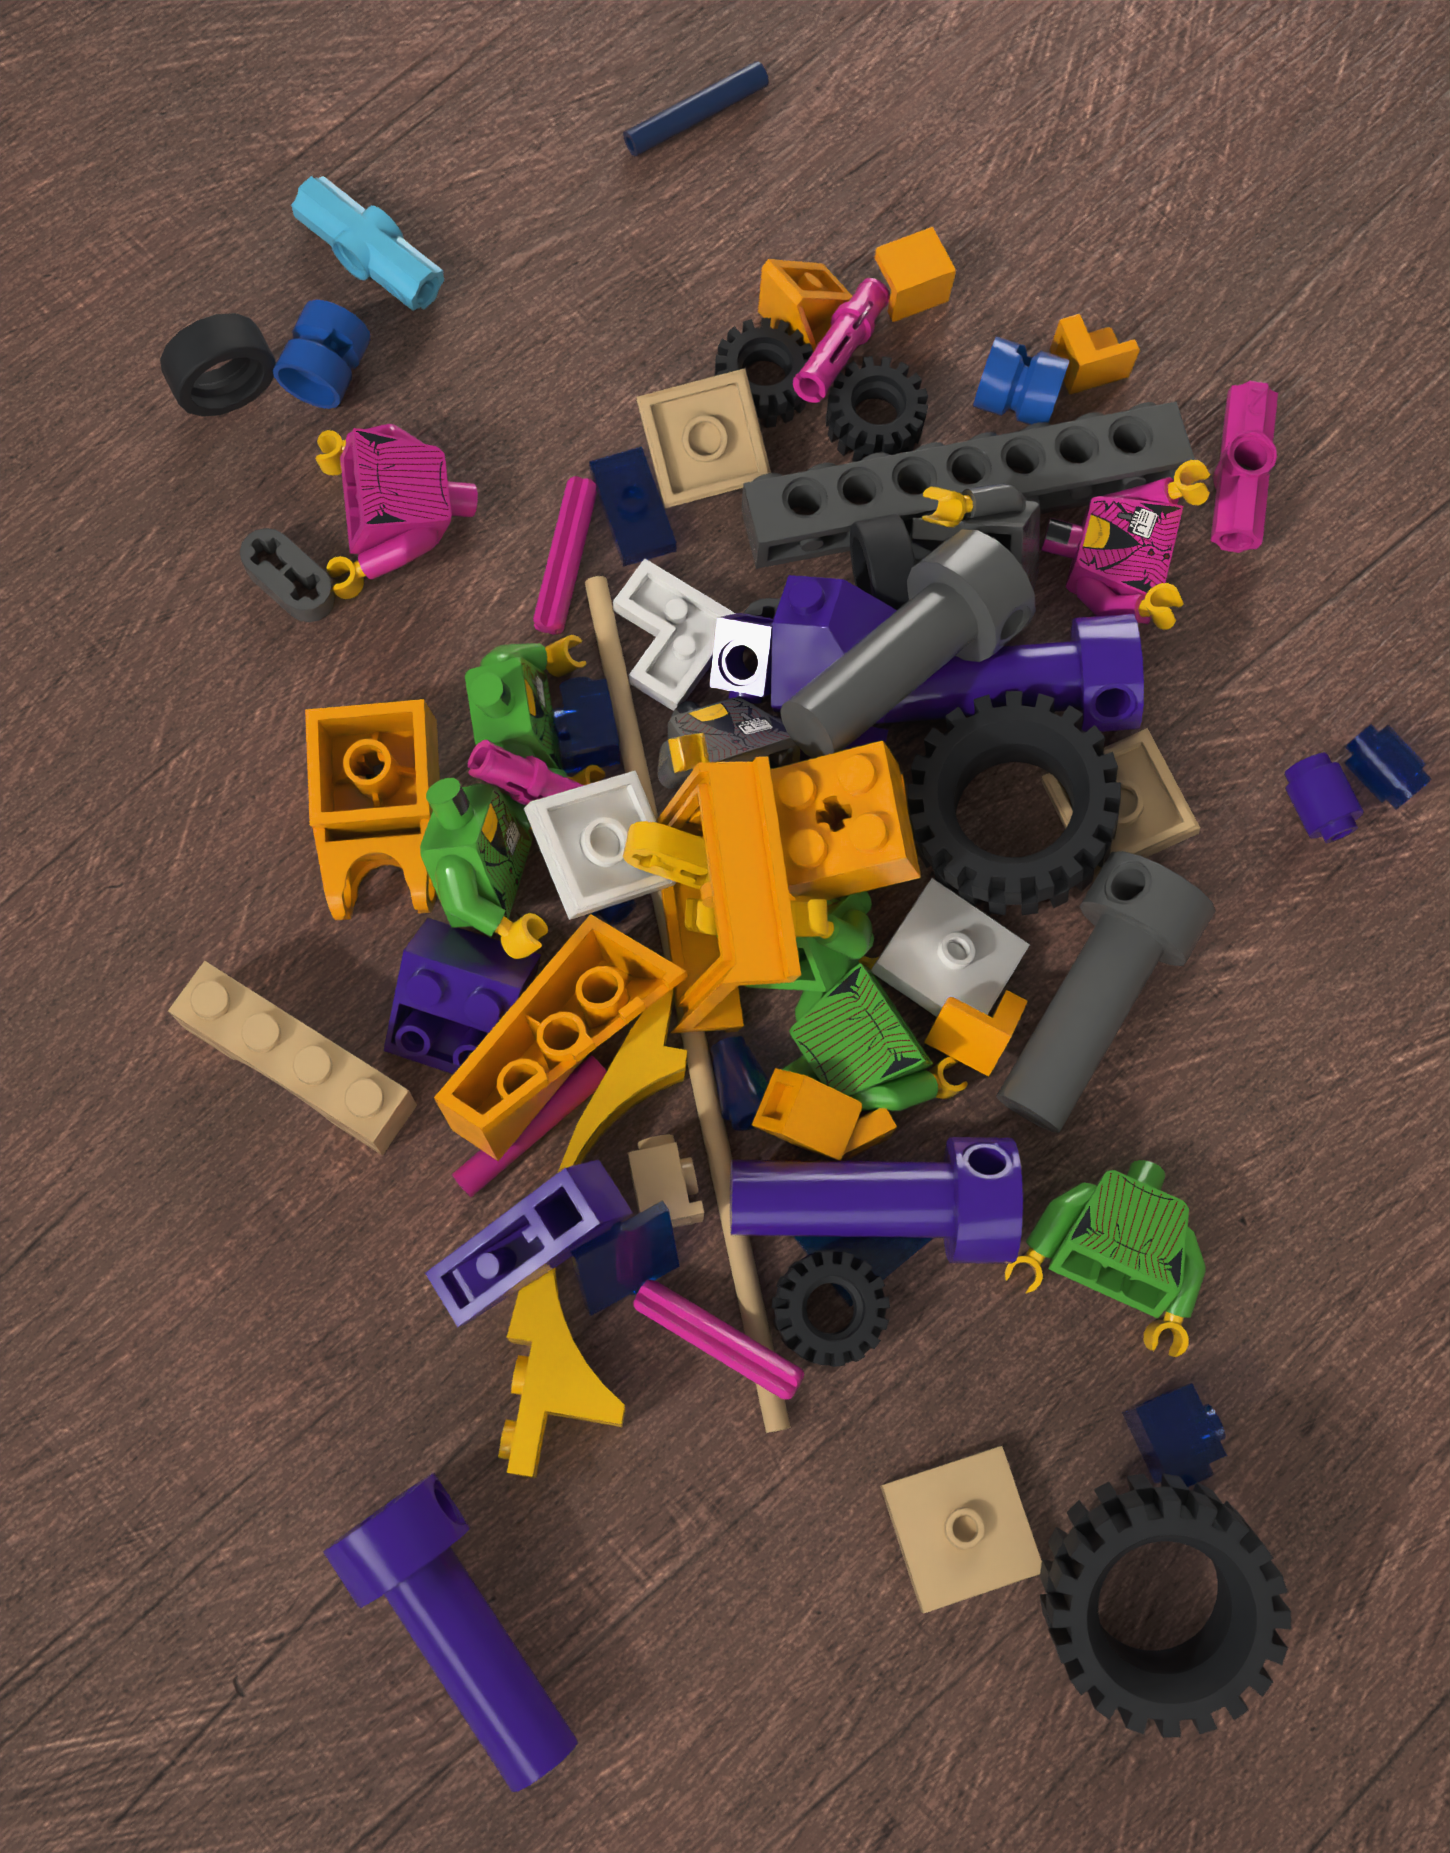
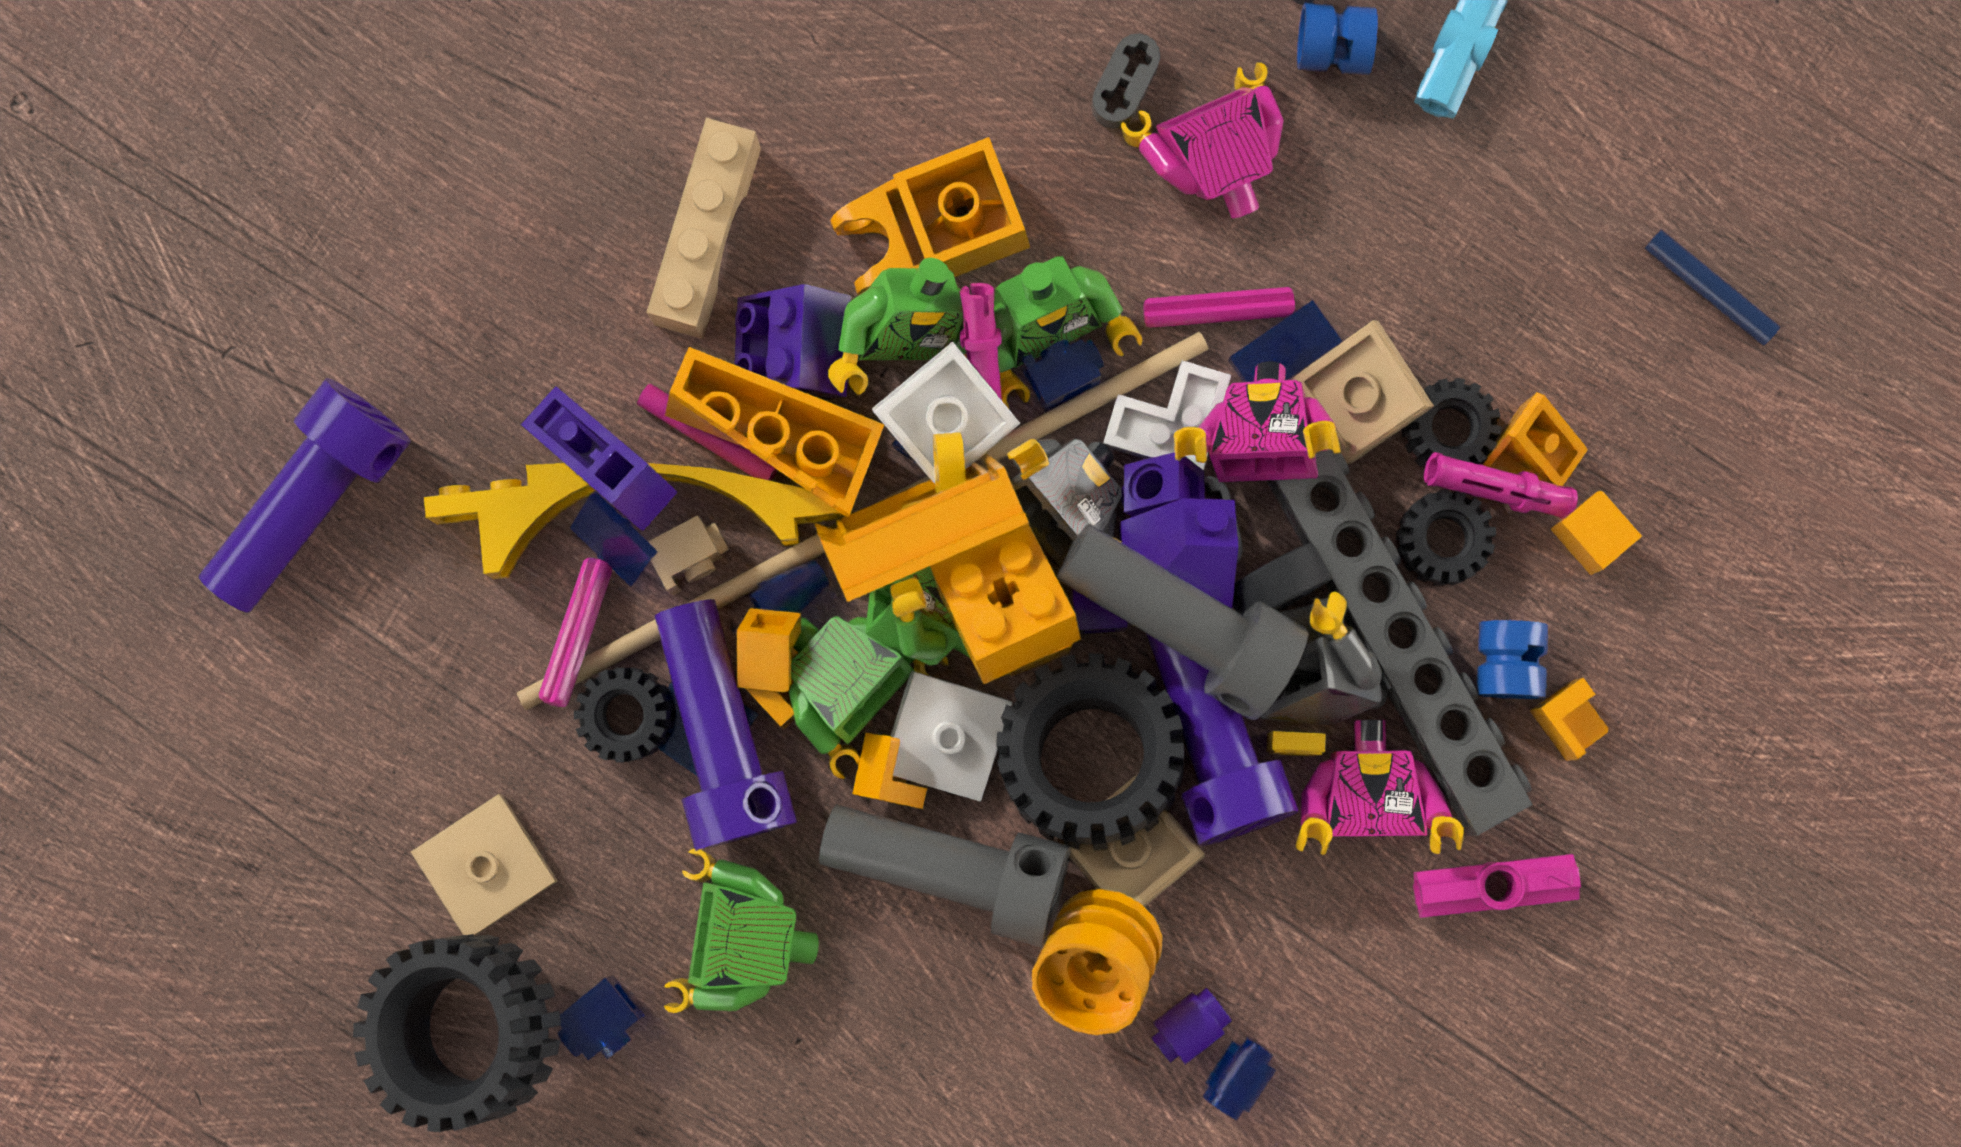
camera: 80 degrees right, 10 degrees up
(722, 525) = (1262, 430): none -> torso
(1052, 608) = (1295, 743): none -> yellow tile
(1248, 855) = (1097, 962): none -> light orange wheel

